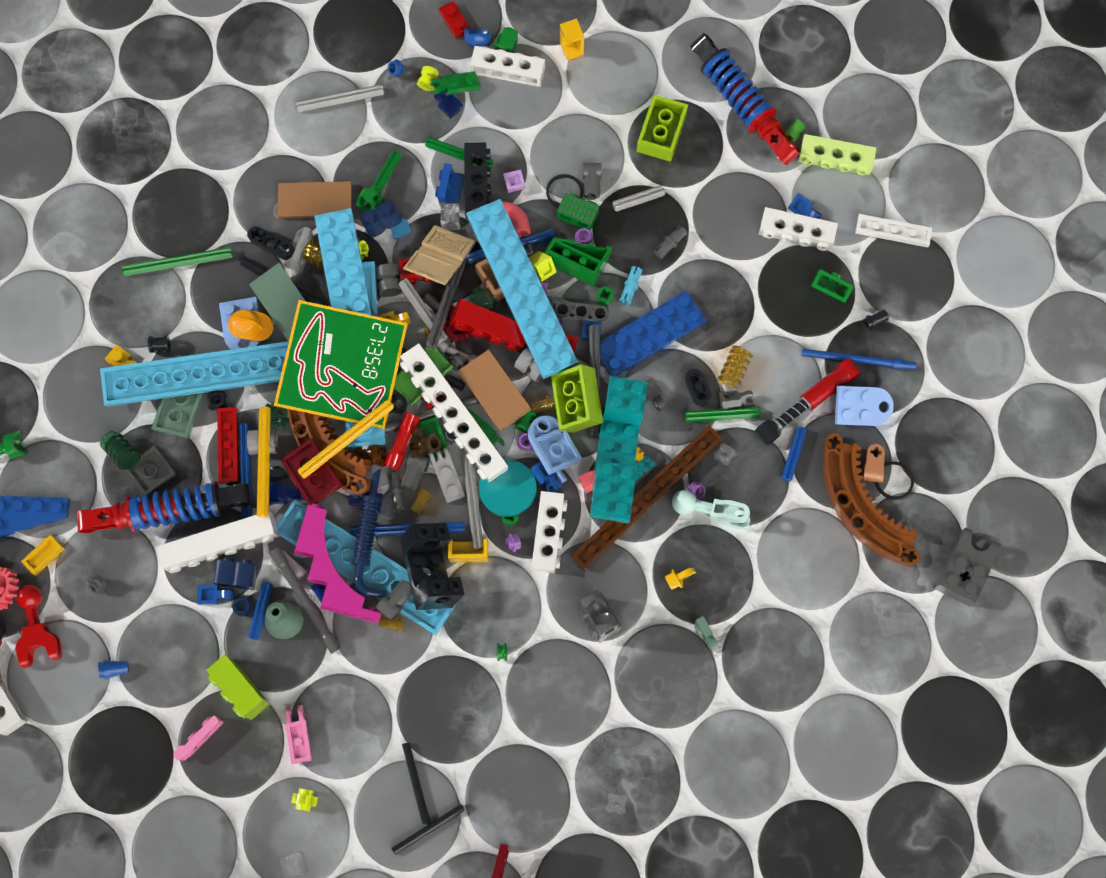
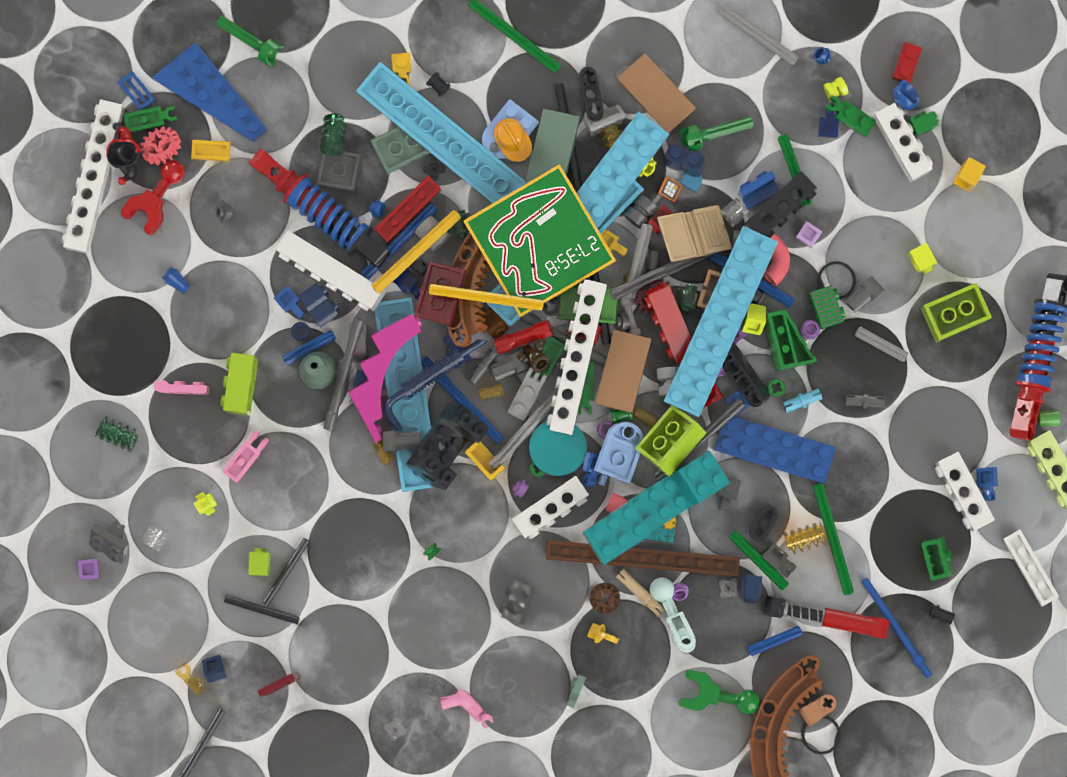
camera: 50 degrees right, 10 degrees up
(184, 823) = (117, 434): none -> clear green piece
(205, 467) = (377, 208): none -> blue plate
(389, 797) = (259, 562): none -> lime brick
(392, 248) = (670, 189): none -> slope
(602, 120) = (922, 259): none -> neon yellow brick
(646, 727) = (468, 703): none -> bright pink arm
(657, 559) = (613, 601): none -> reddish brown gear
(672, 520) = (639, 591): none -> tan pin
(740, 435) = (751, 588): none -> dark blue brick
(753, 348) = (833, 539): none -> green axle
(795, 533) = (746, 701): none -> green piece
(861, 405) = (857, 661): light blue plate -> none

